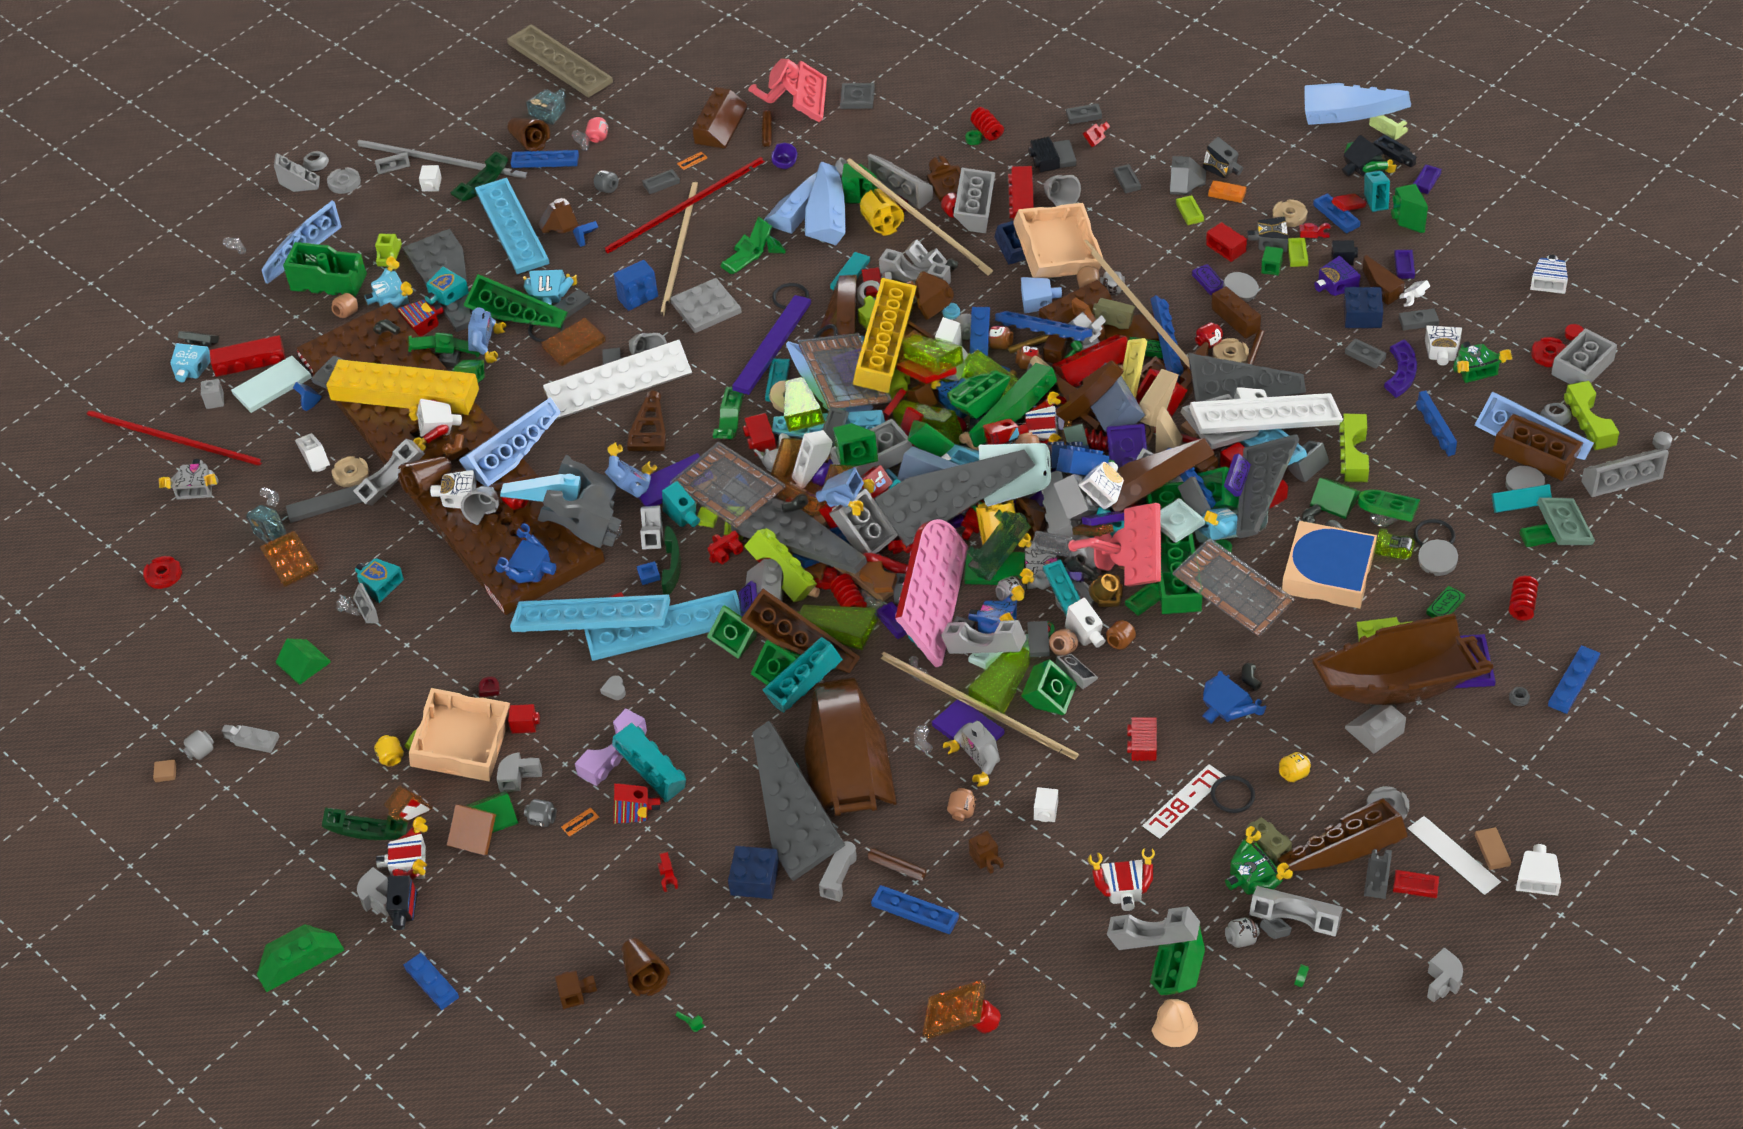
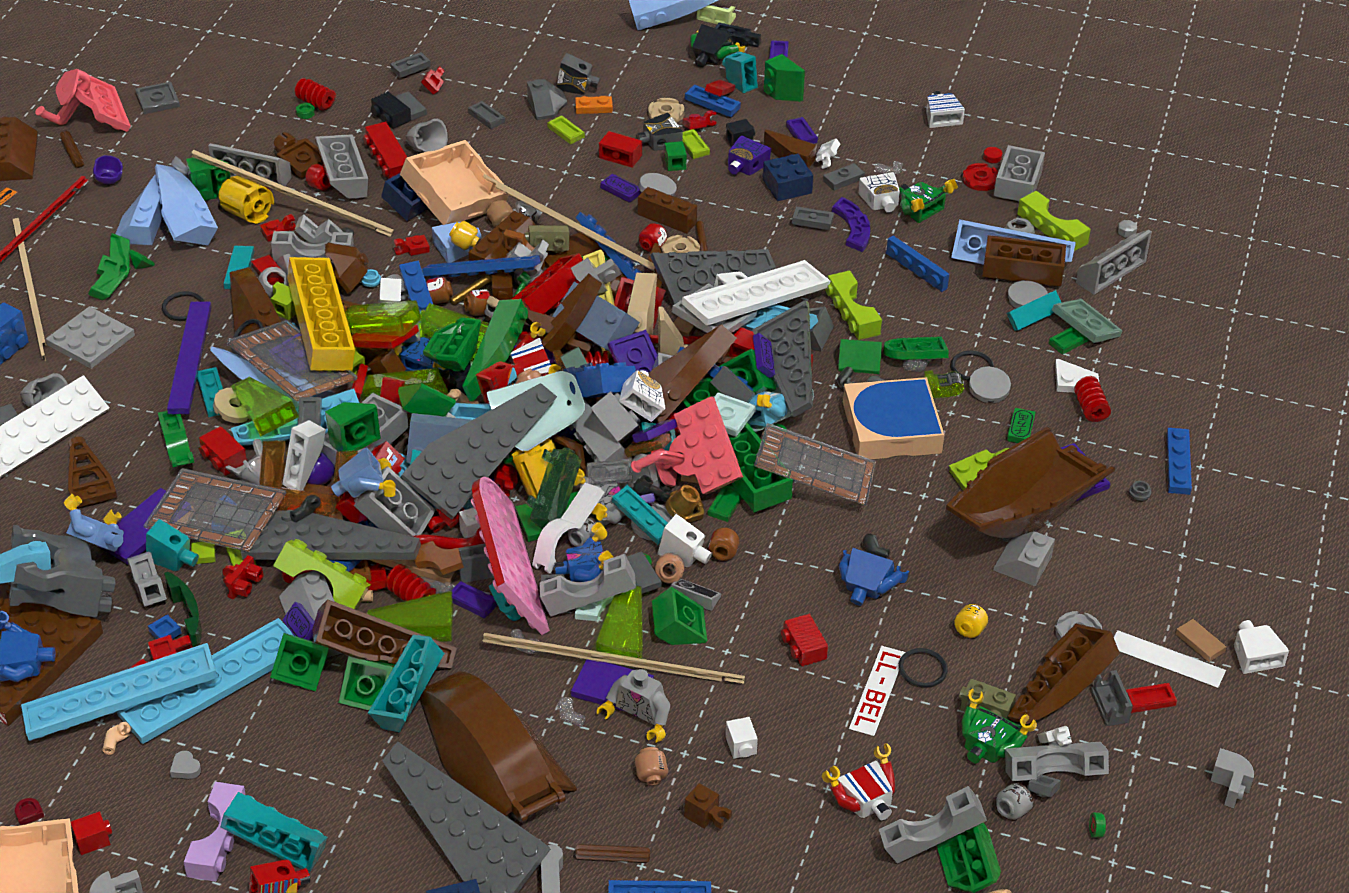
camera: 30 degrees left, 5 degrees down
(573, 648) = (114, 736): none -> light nougat arm
(643, 588) = (166, 646): none -> red plate
(897, 243) = (275, 225): none -> red plate
(1000, 576) = (572, 518): none -> white piece
(1003, 289) = (413, 245): none -> red plate
(1041, 292) = (464, 235): none -> yellow head
(1129, 361) = (604, 273): none -> light grey brick
(1308, 890) = (1056, 736): none -> white plate
(1466, 324) = (883, 169): none -> clear arm
(1520, 566) = (1069, 374): none -> white wing

